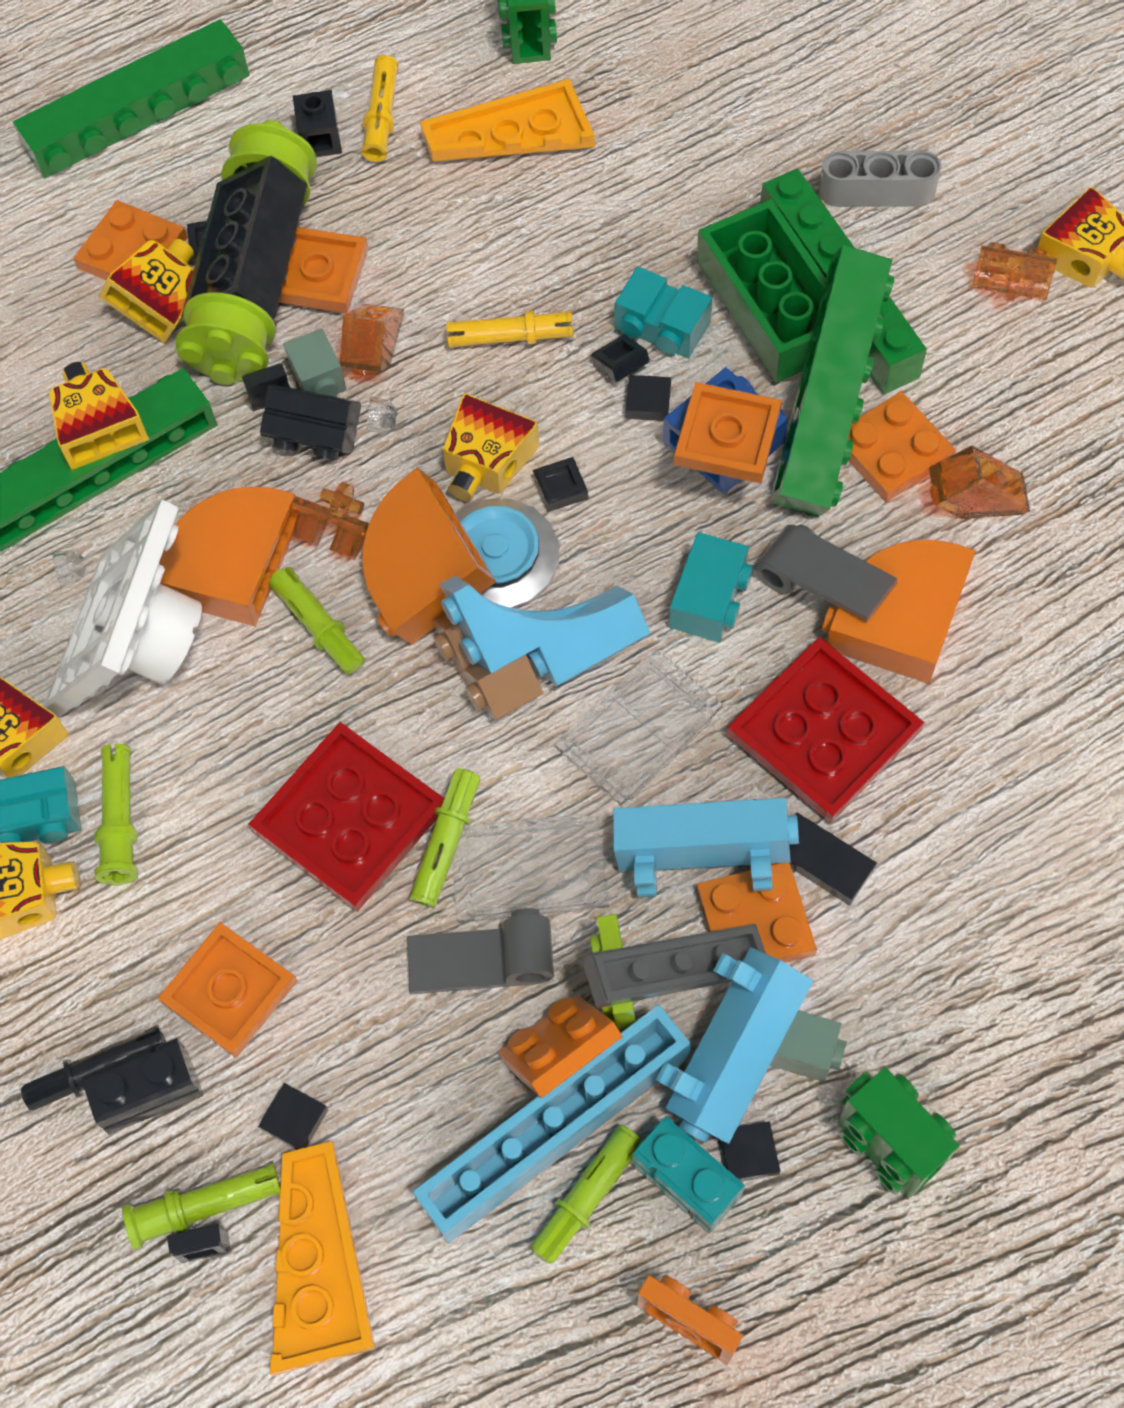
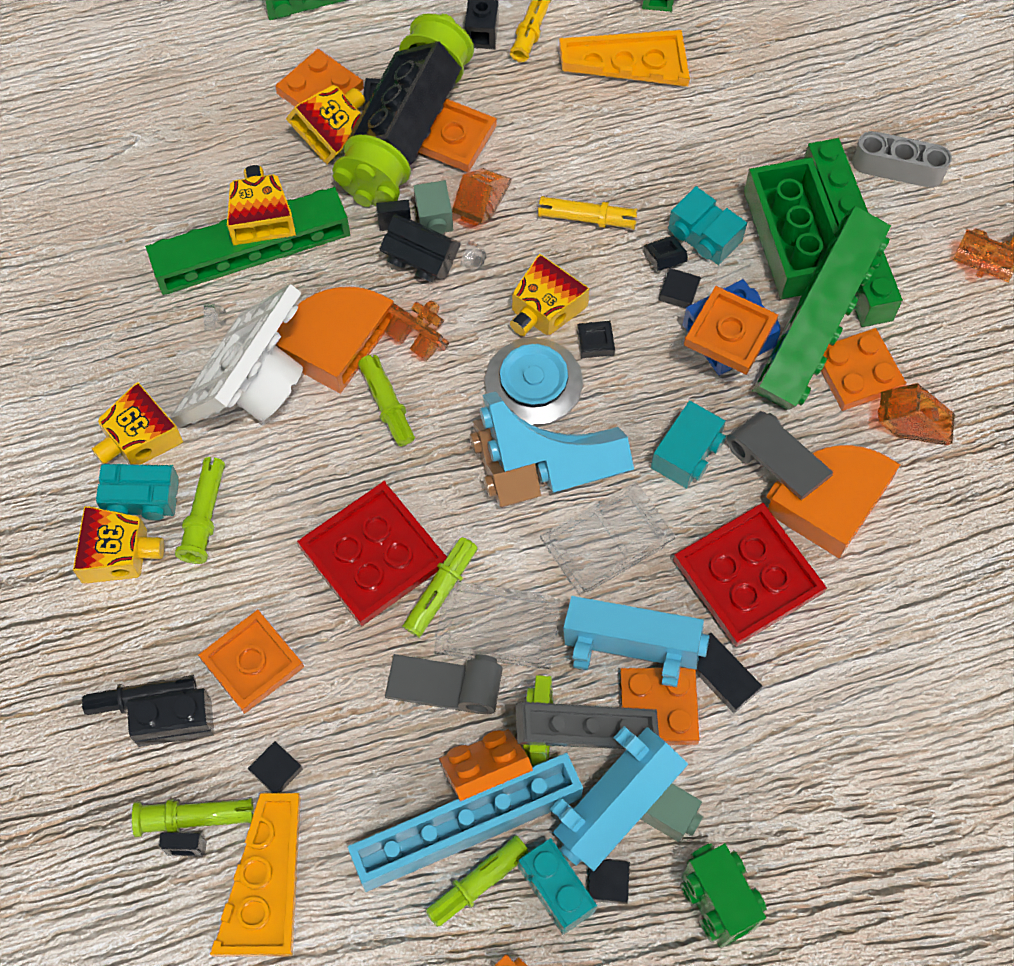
camera: 10 degrees right, 0 degrees up
(411, 550) = (472, 362): orange brick -> none

